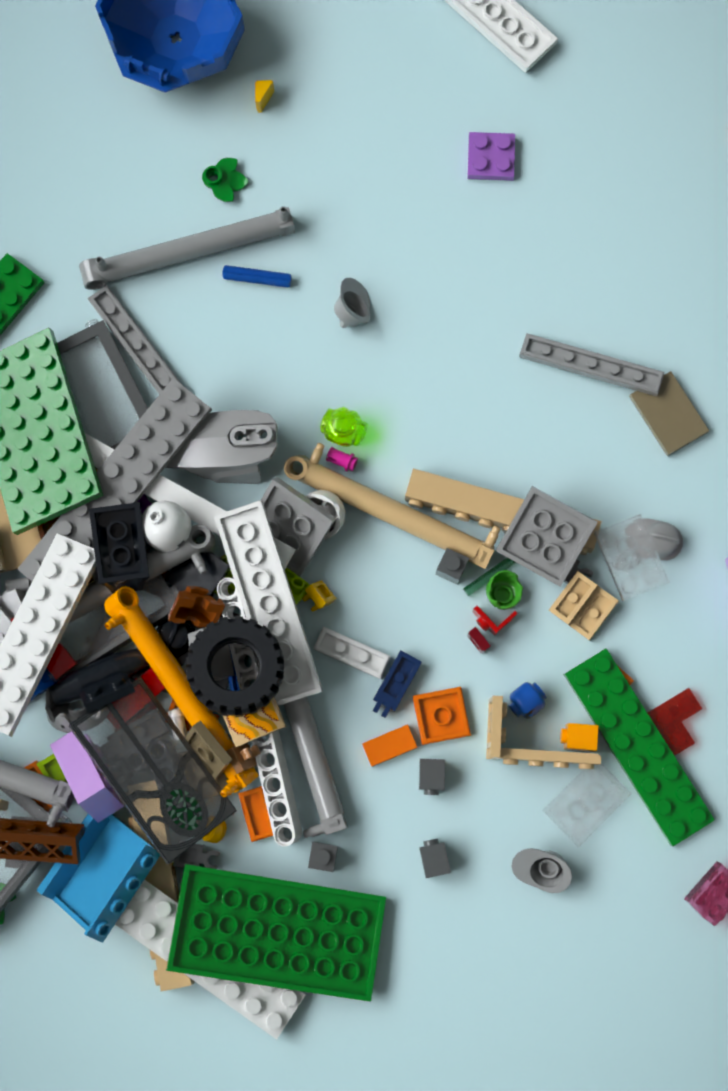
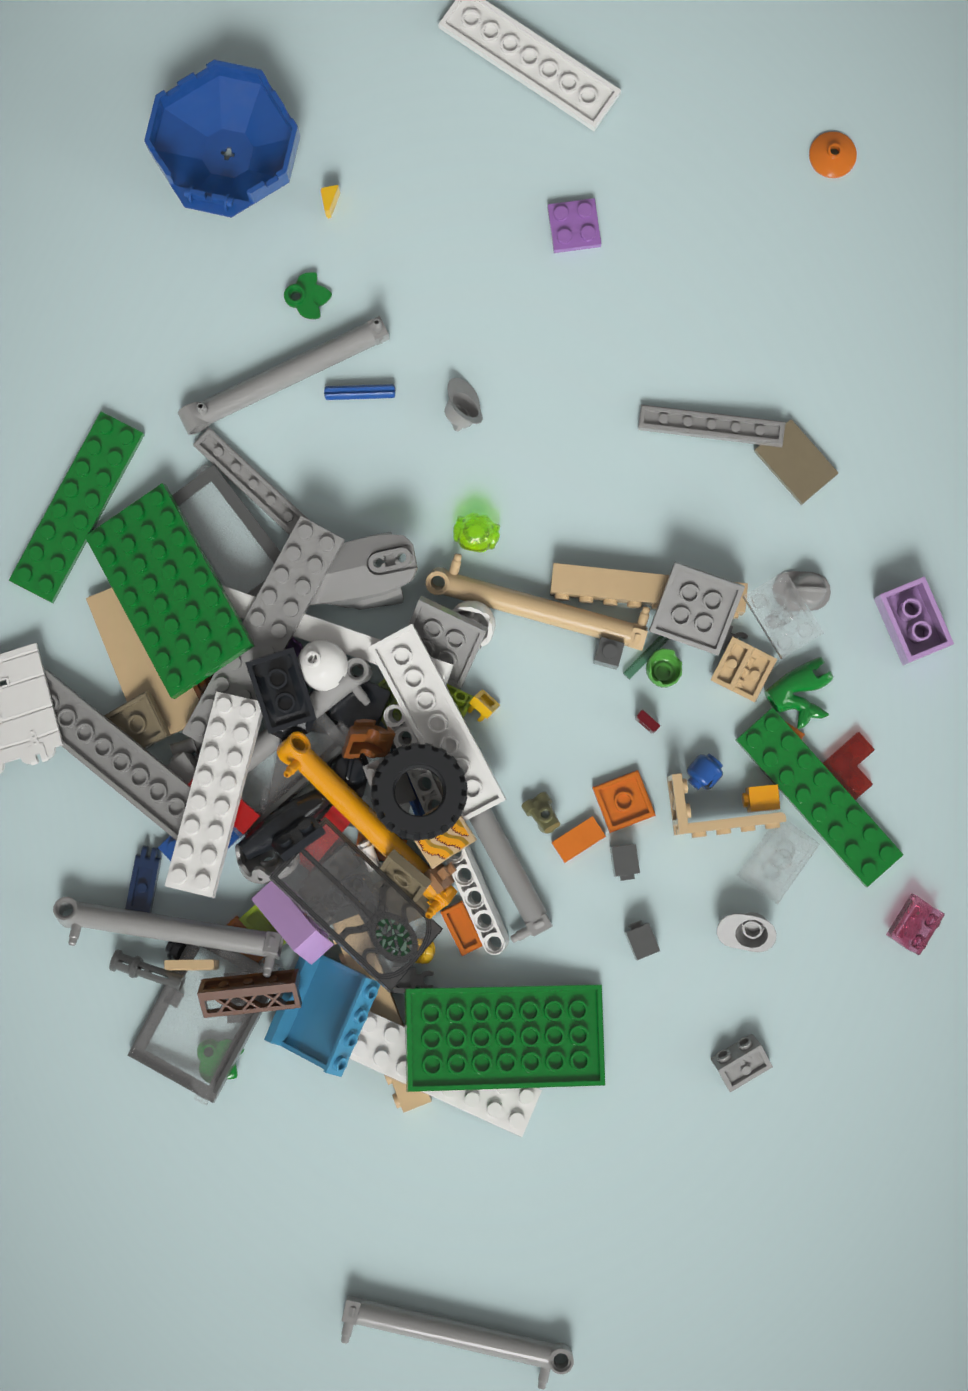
camera: 15 degrees left, 5 degrees up
(323, 856) = (534, 957): dark grey brick -> none
(342, 459) = (480, 564): dark pink pin -> none
(351, 652) = (525, 755): white tile -> none
(357, 711) = (542, 812): none -> olive plate
(396, 683) = (574, 777): dark blue hinge -> none
(486, 623) = (652, 704): red bracket -> none
(514, 1003) = (741, 1062): none -> light grey bracket
(638, 626) = (800, 679): none -> green piece

